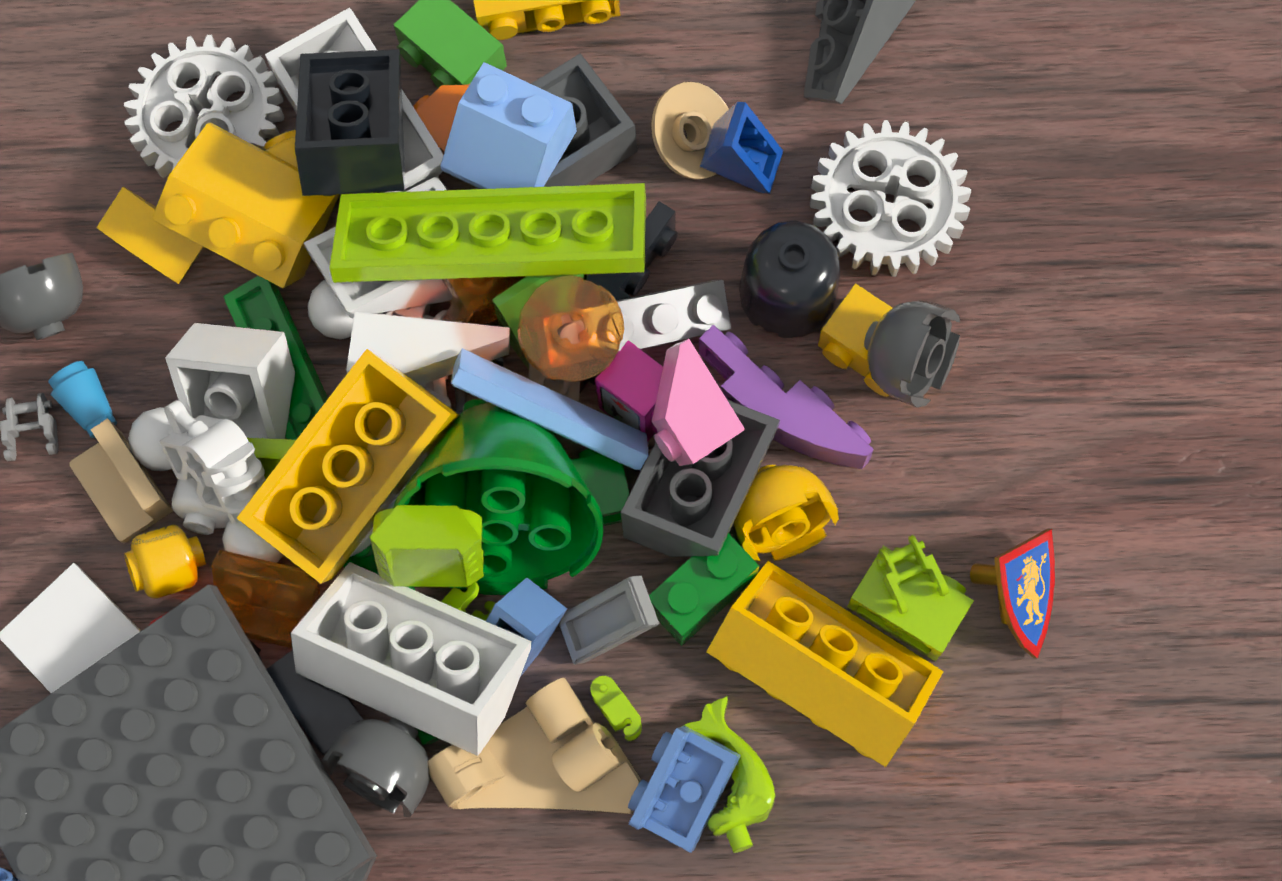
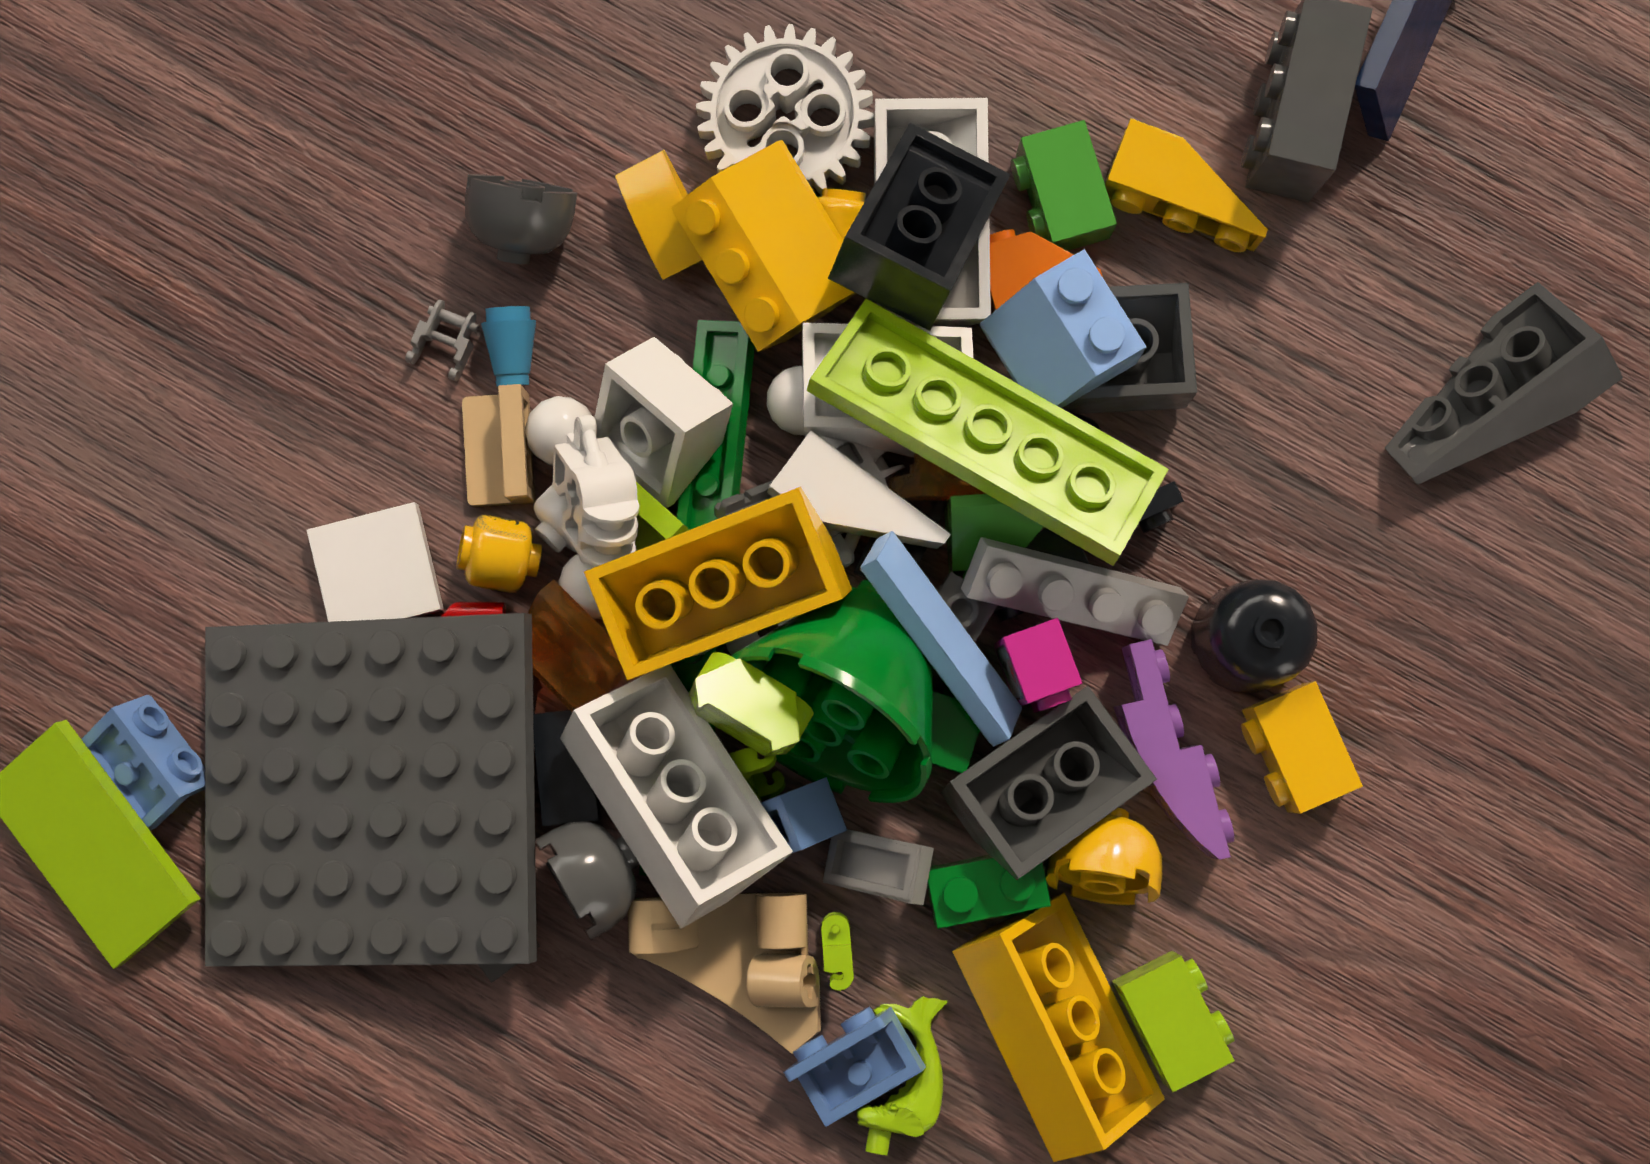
camera: 30 degrees right, 10 degrees up
(581, 301) = (1028, 604): clear orange plate -> none
(691, 408) = (1076, 727): bright pink slope -> none
(695, 110) = (1267, 431): tan dish -> none
(743, 149) = (1288, 472): blue slope -> none
(897, 159) = (1436, 571): white gear -> none
(912, 350) = (1327, 789): dark grey cylinder -> none
(926, 565) = (1170, 998): lime piece -> none
(1024, 588) = (1288, 1073): shield -> none

